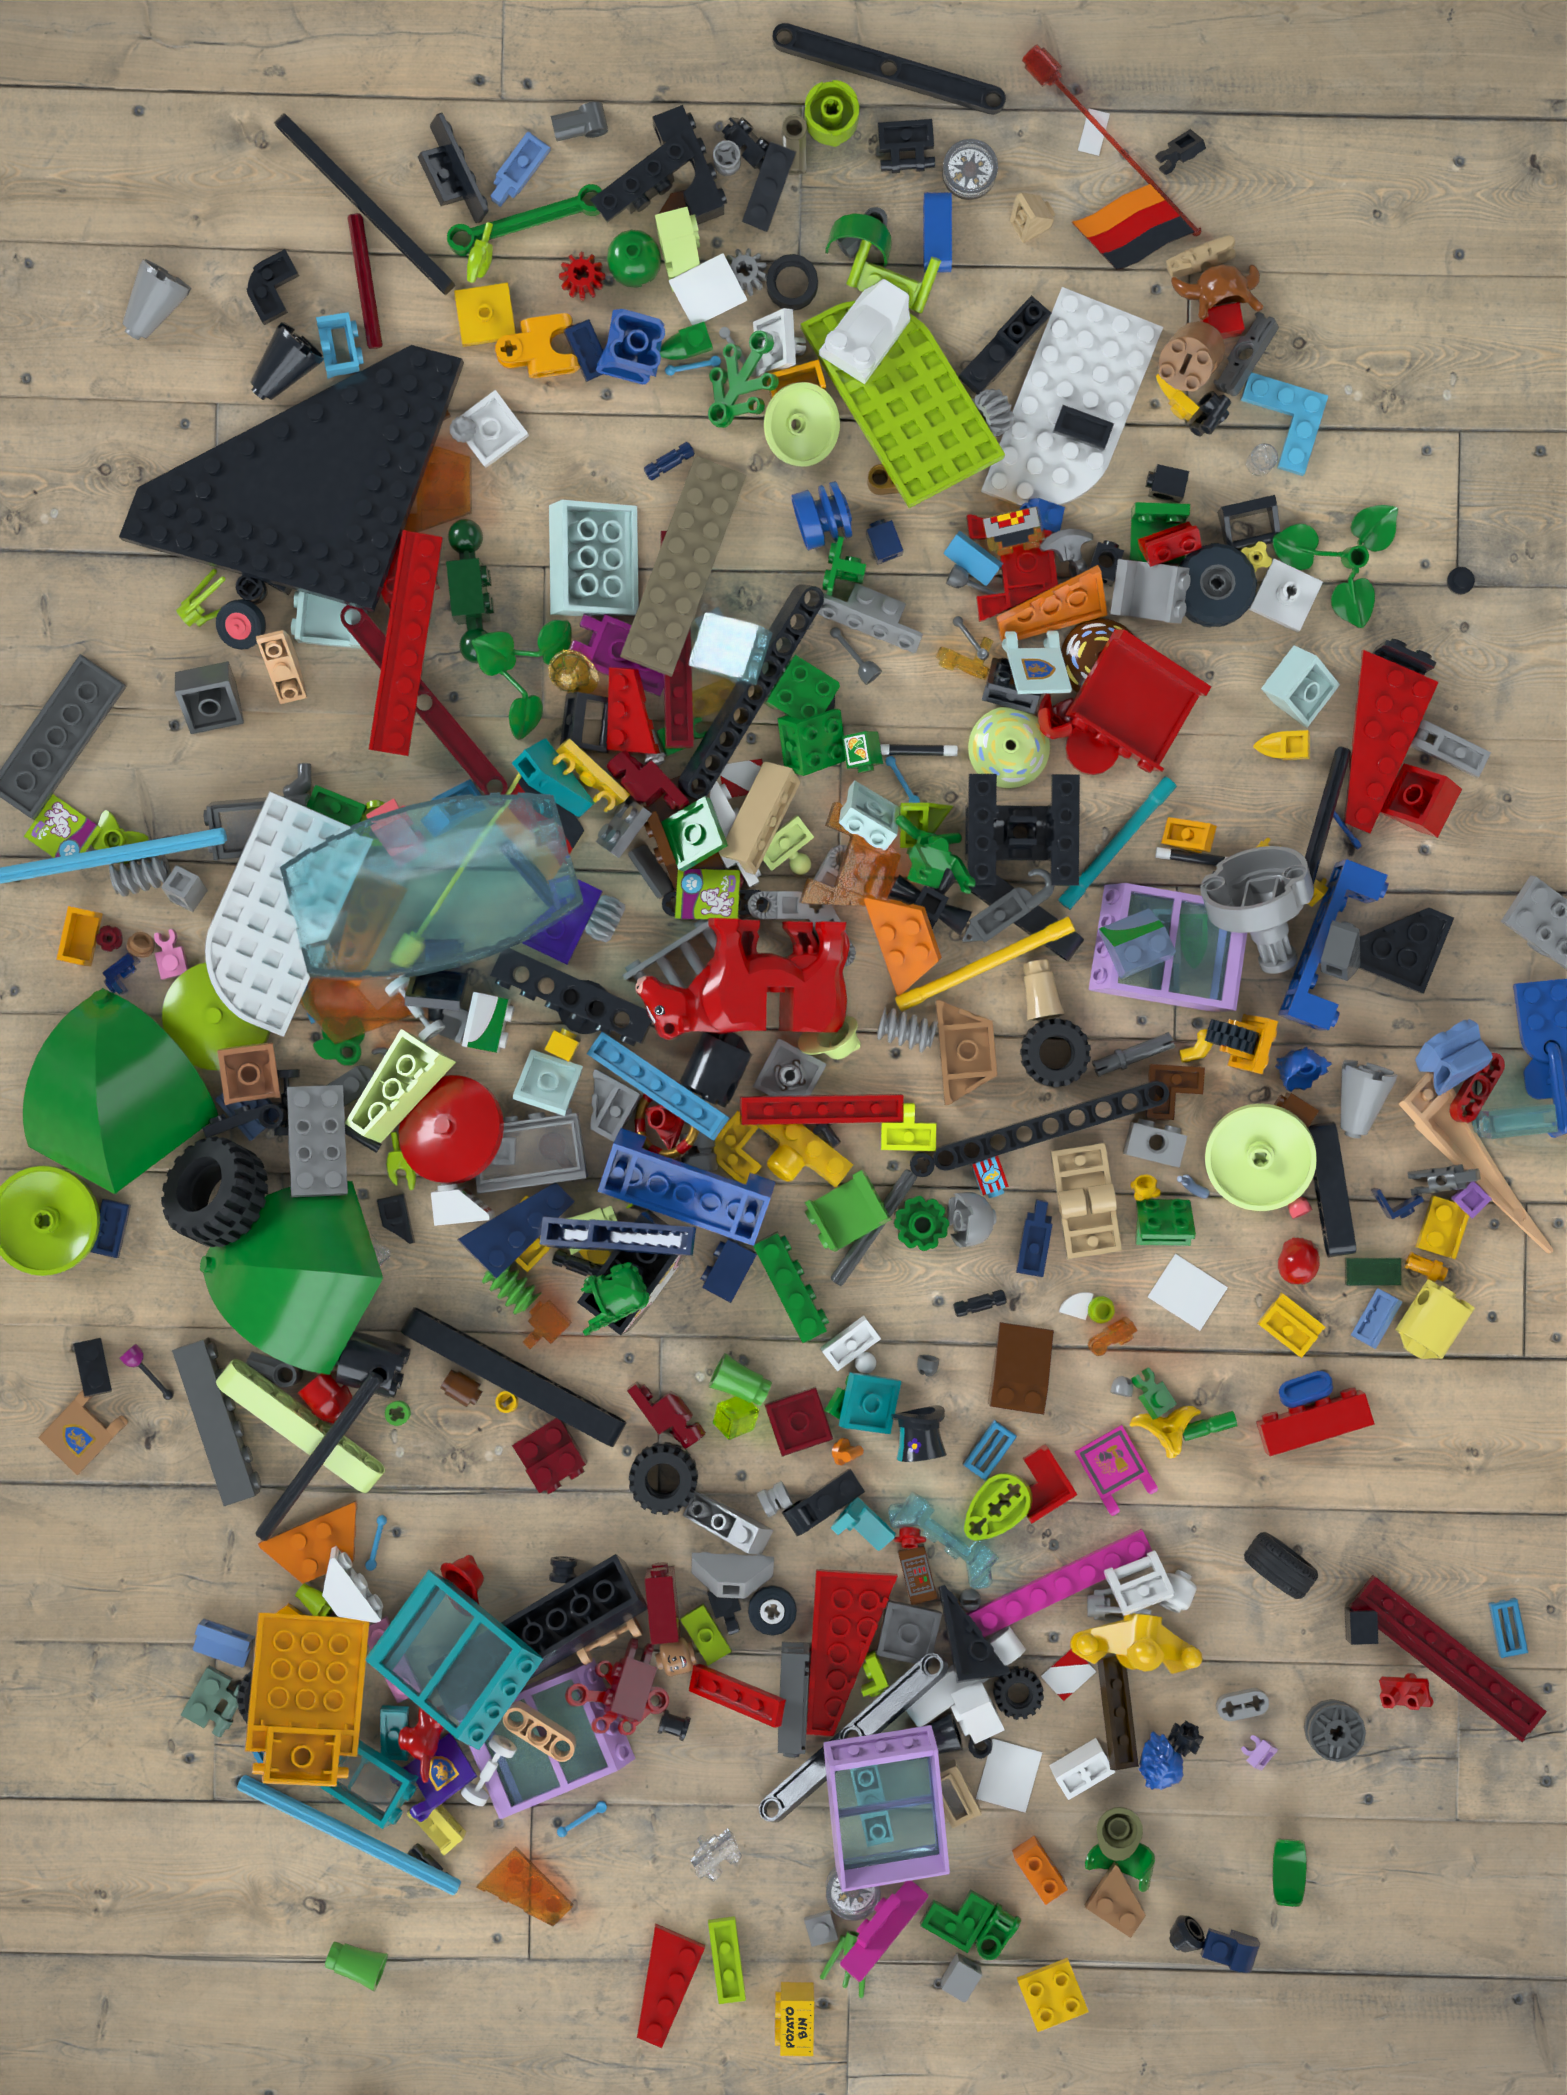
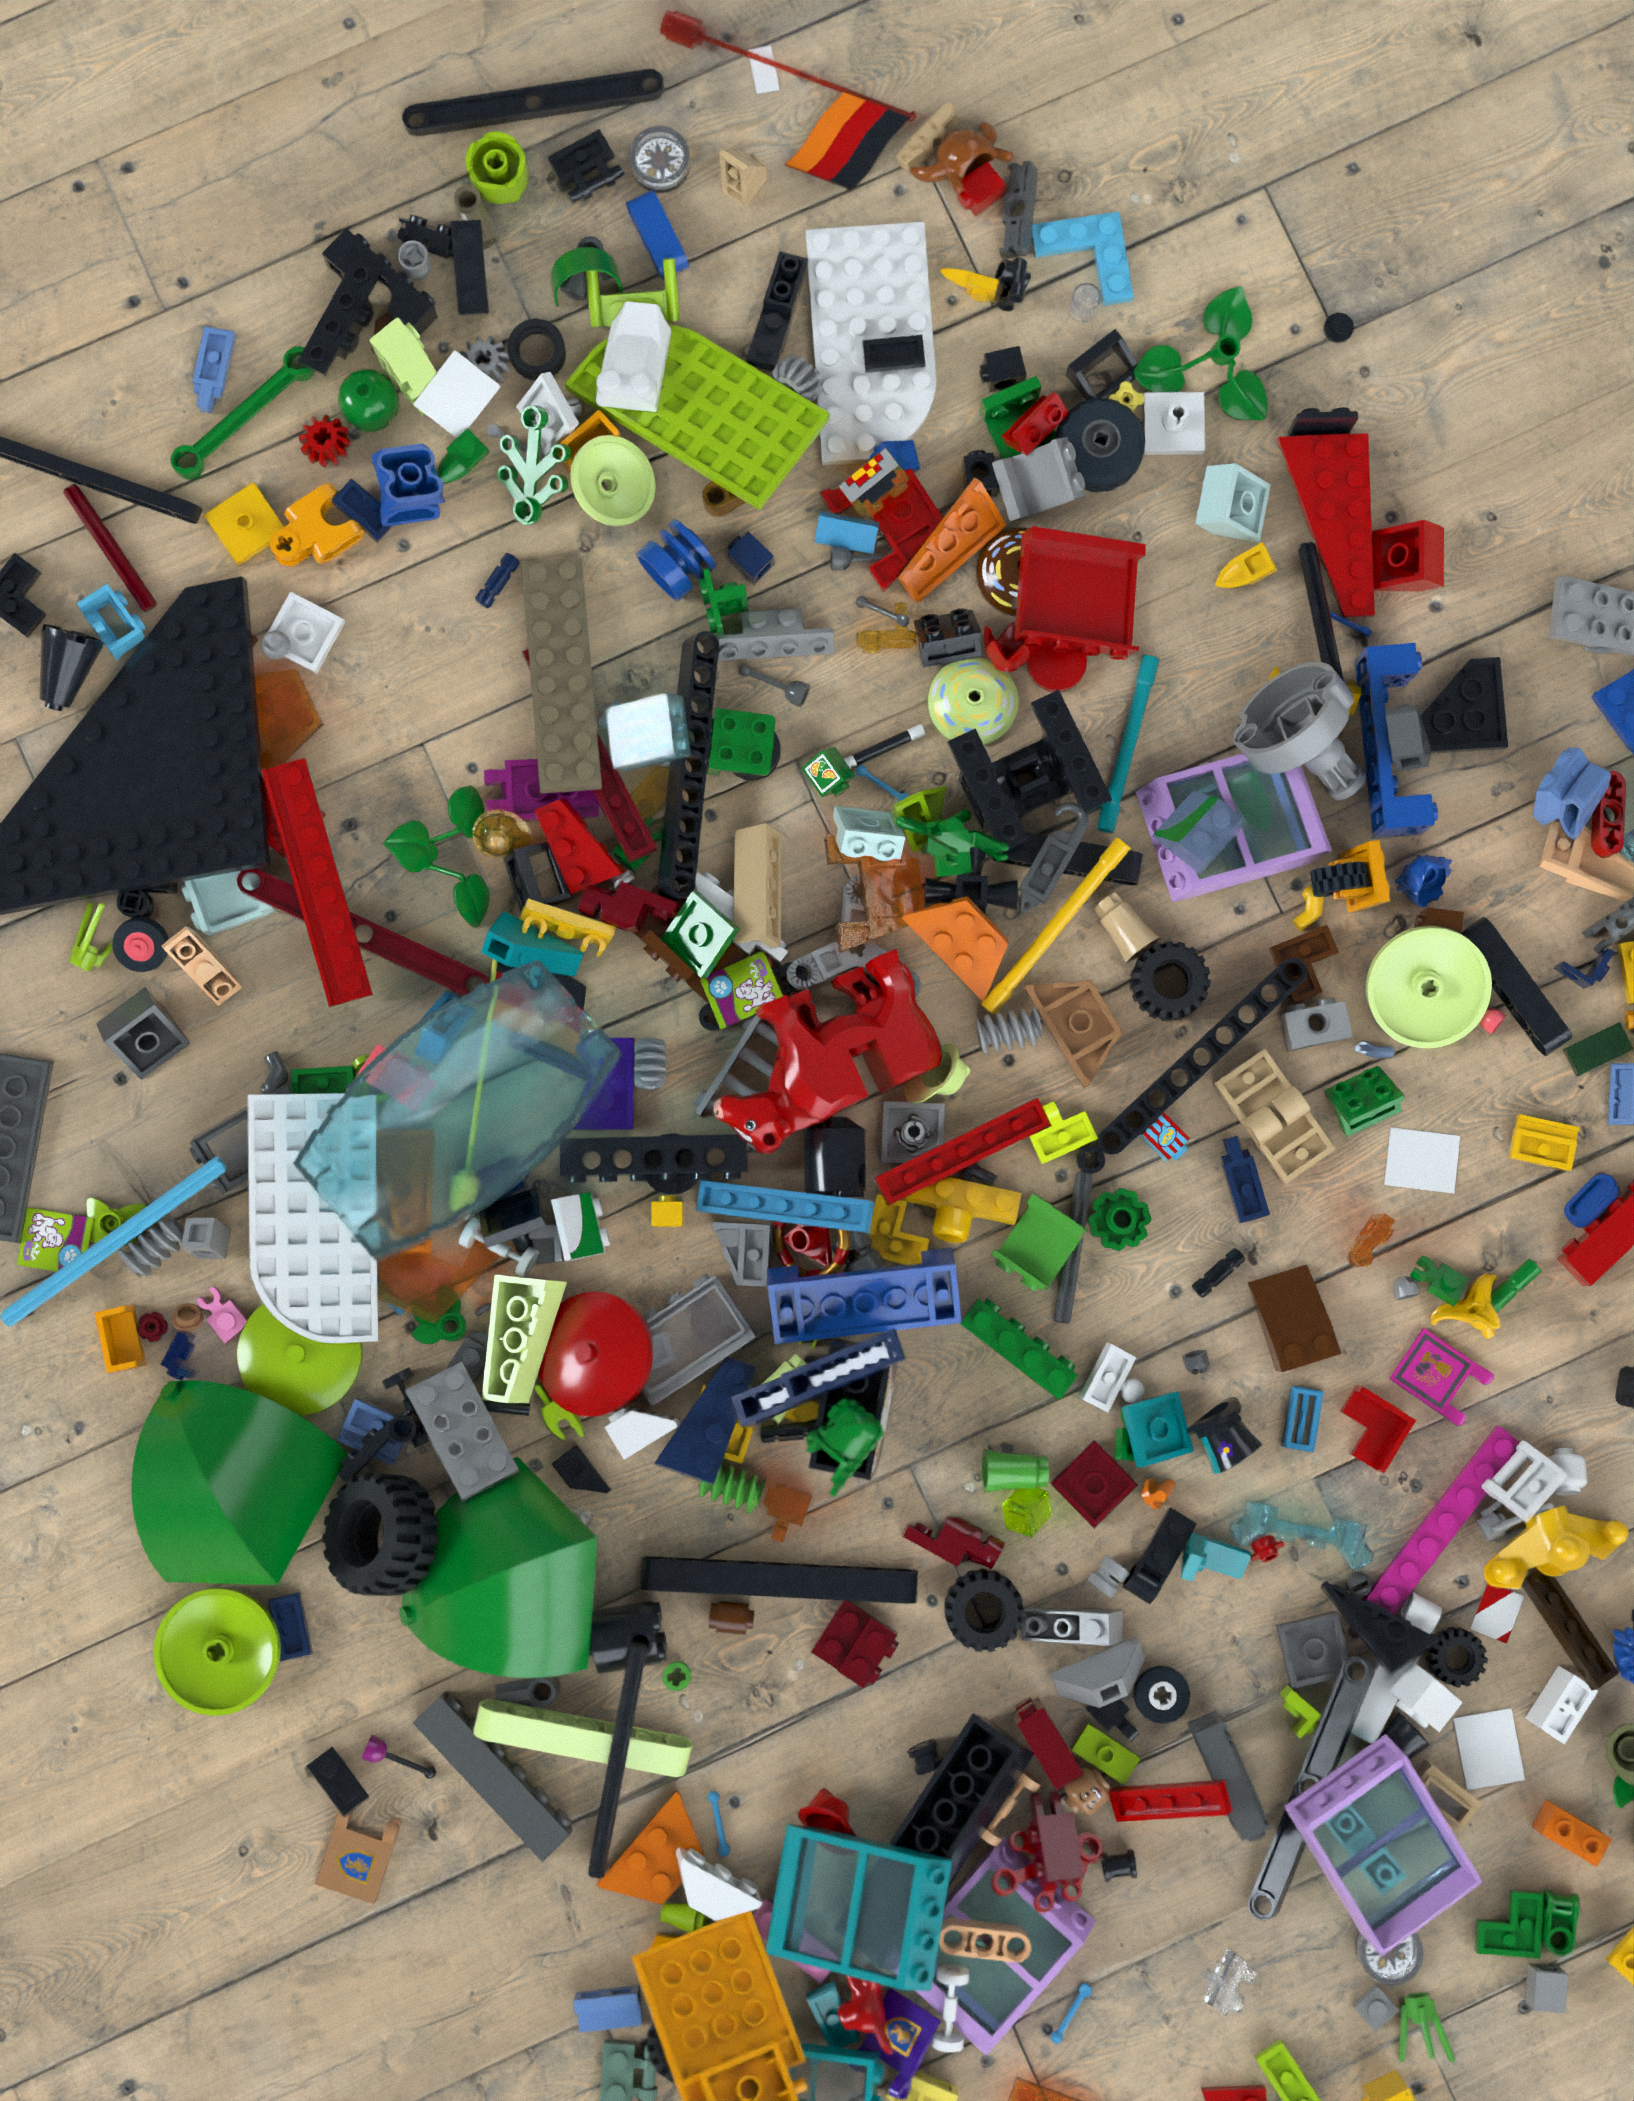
camera: 25 degrees left, 5 degrees down
(248, 1073) = (359, 1395): nougat slope -> none
(326, 1397) = (595, 1695): red helmet -> none
(449, 172) = (145, 401): black bracket -> none
(468, 585) = (354, 796): dark green brick -> none
(480, 256) = (214, 468): lime hand -> none
(503, 1397) = (779, 1604): yellow hinge -> none
(547, 1082) = (670, 1258): light aqua plate -> none
(586, 122) = (258, 290): dark grey piece -> none
(593, 559) = (467, 711): light aqua slope -> none
(623, 827) = (625, 962): flat silver plate -> none
(651, 871) = (673, 995): dark grey slope -> none
(715, 361) = (496, 462): dark azure hinge -> none
(728, 1270) = (946, 1361): dark blue brick -> none
(740, 776) = (718, 857): white sticker -> none
(786, 844) = (797, 901): yellowish green plate -> none
(812, 742) = (774, 787): green bracket -> none
(843, 1627) = (1244, 1677): red wing -> none
(881, 1931) = (1441, 1977): dark pink bracket -> none
(917, 1574) = (1292, 1584): reddish brown tile -> none
(971, 1219) = (1167, 1189): light grey cylinder -> none
(980, 1753) = (1447, 1741): black axle -> none
(1010, 1516) = (1358, 1475): lime piece -> none
(1037, 668) = (964, 607): light aqua flag -> none
(1067, 546) = (935, 476): flat silver piece -> none
(1077, 1305) = (1318, 1227): white tile -> none
(1101, 1309) = (1344, 1219): lime plate -> none
(1133, 1054) = (1240, 955): dark grey pin -> none
(1145, 1187) = (1327, 1074): yellow plate -> none
(1181, 148) = (857, 44): black plate -> none
(1186, 856) = (1205, 724): black bar -> none
(1189, 835) = (1196, 701): light orange slope -> none
(1191, 356) = (969, 248): medium nougat cylinder -> none
(1299, 1261) = (1518, 1074): red hair -> none
(1363, 1095) = (1499, 877): light grey cone -> none
(1451, 749) = (1412, 494): light grey plate -> none

